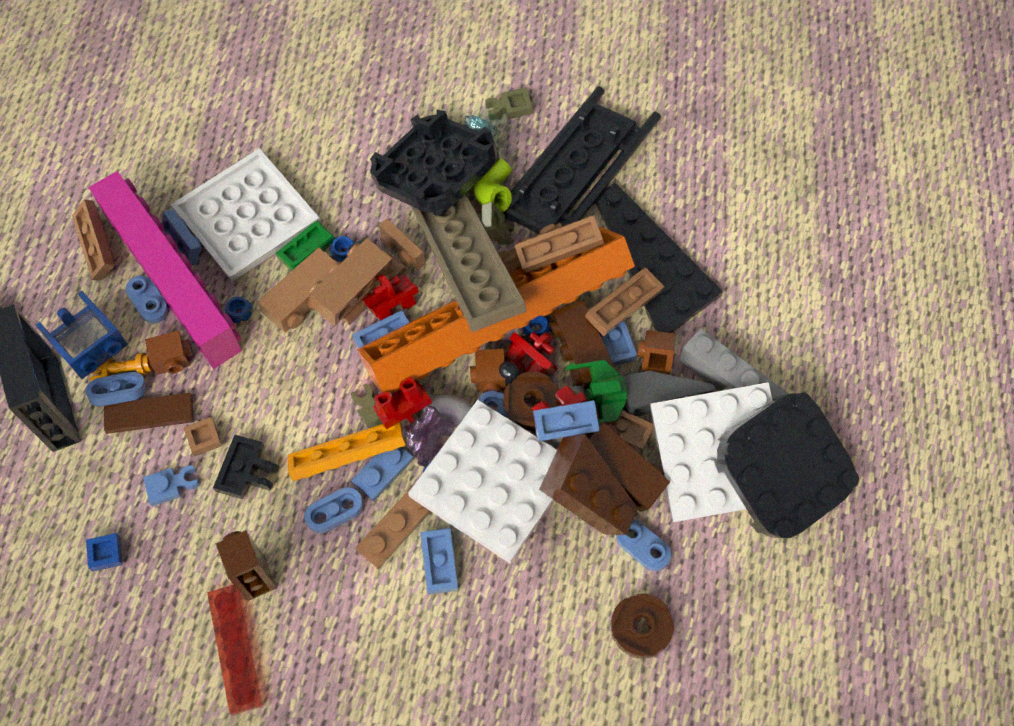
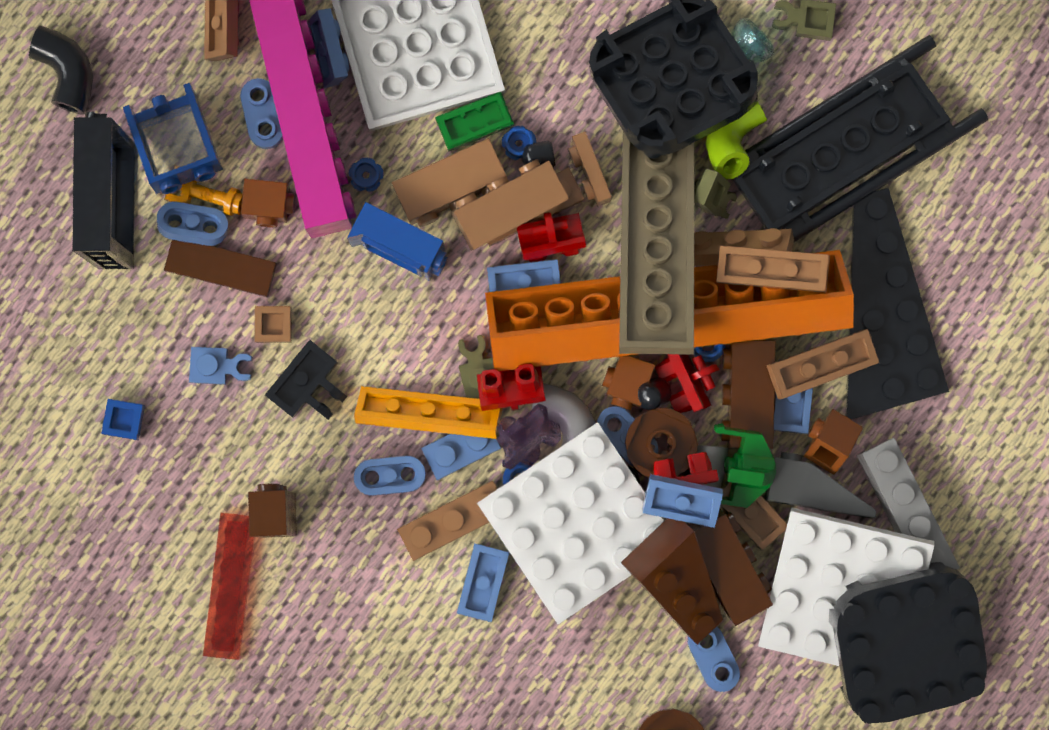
camera: 20 degrees right, 20 degrees up
(276, 337) = (398, 242): none -> blue window

